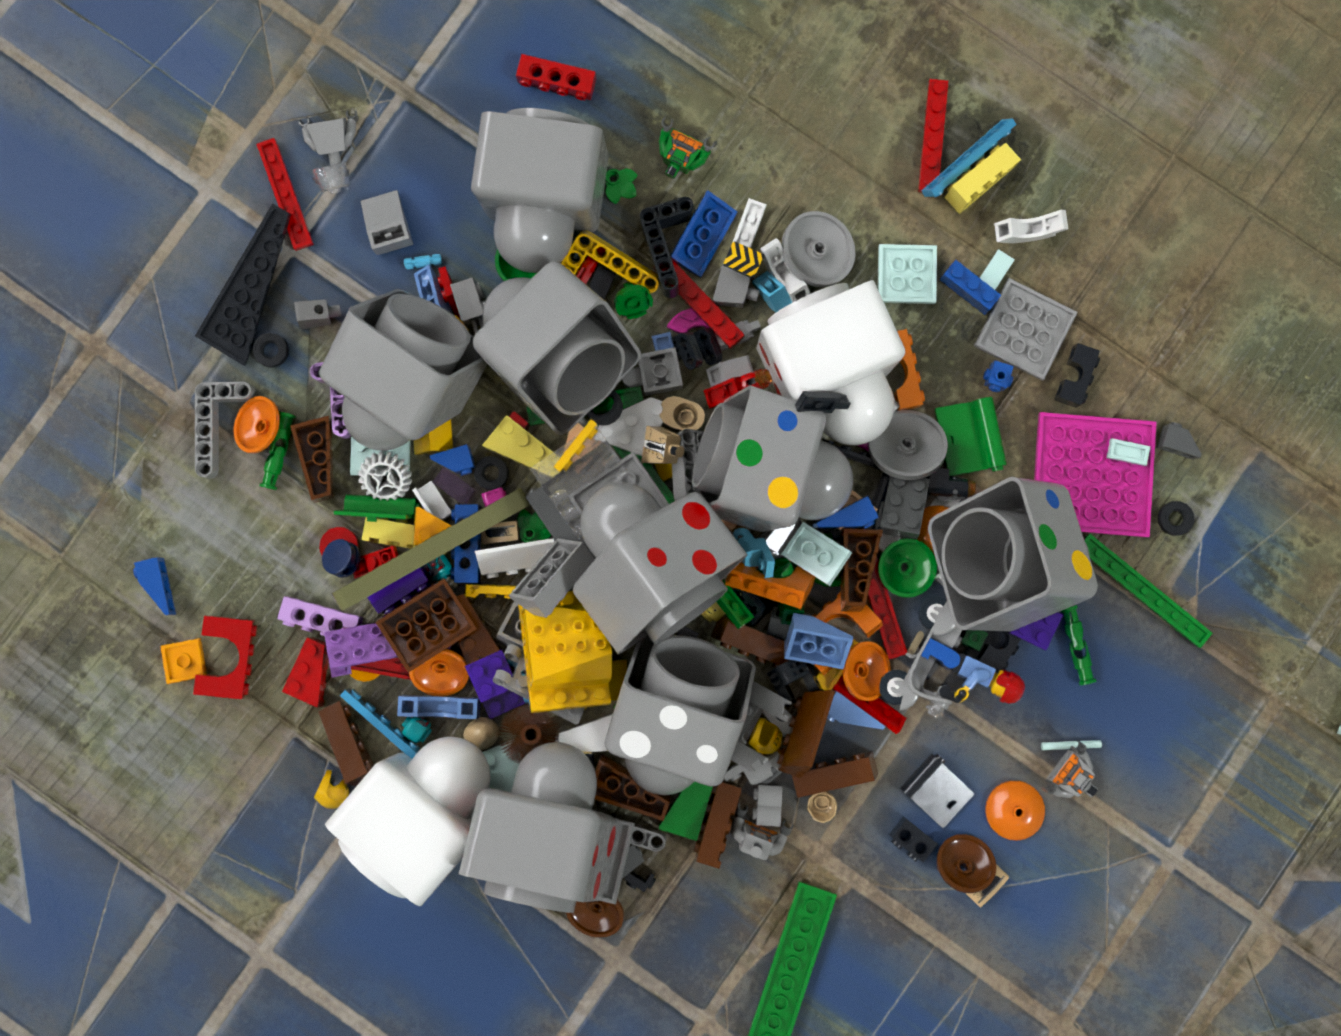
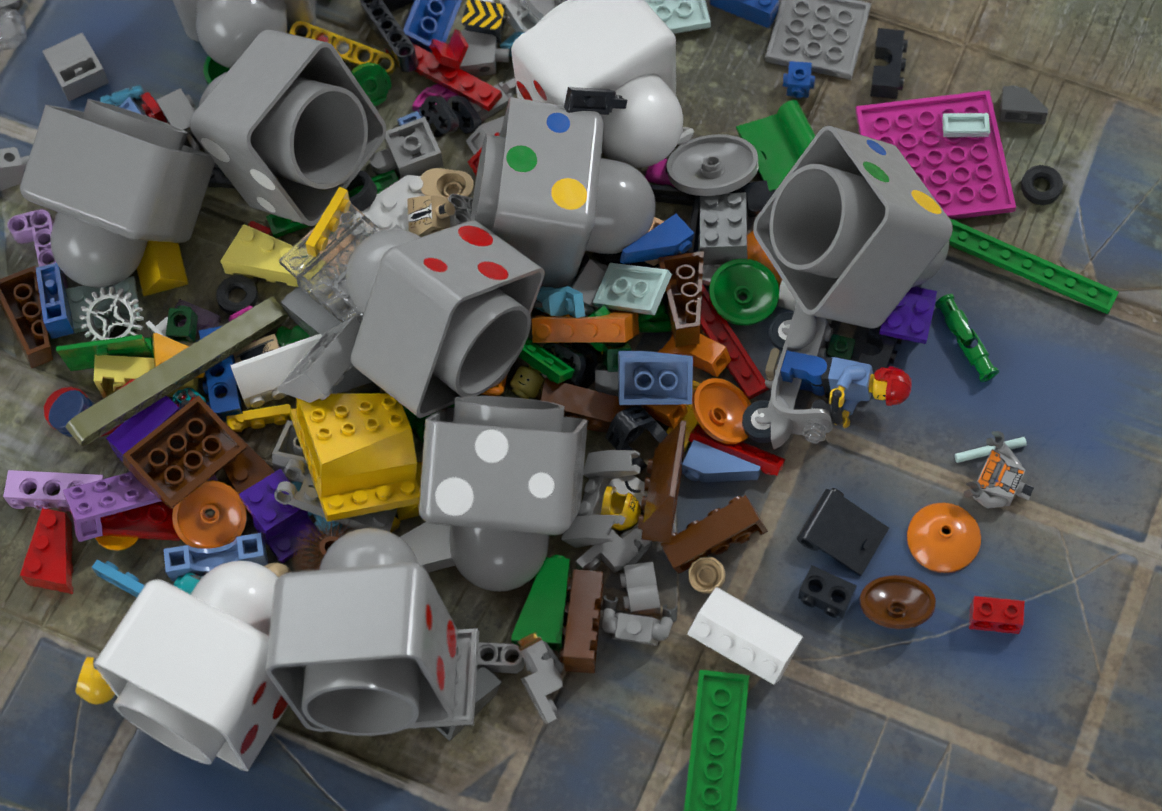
camera: 10 degrees left, 20 degrees down
(339, 452) = (54, 301): none -> blue slope
(346, 742) = (97, 606): reddish brown wedge -> none
(434, 500) = (185, 333): none -> dark green brick
(456, 459) = (191, 287): blue slope -> none
(597, 918) = (447, 770): reddish brown dish -> none
(619, 789) = (474, 605): reddish brown wedge -> none
(636, 881) = (496, 712): black bracket -> none
(677, 862) = (544, 674): none -> light grey plate
(709, 284) = (452, 53): none -> red panel
(841, 866) = (745, 635): none -> white slope
(909, 394) = (702, 115): orange arch -> none
(982, 897) = (929, 633): tan slope -> none
(1040, 888) = (996, 615): none -> red brick

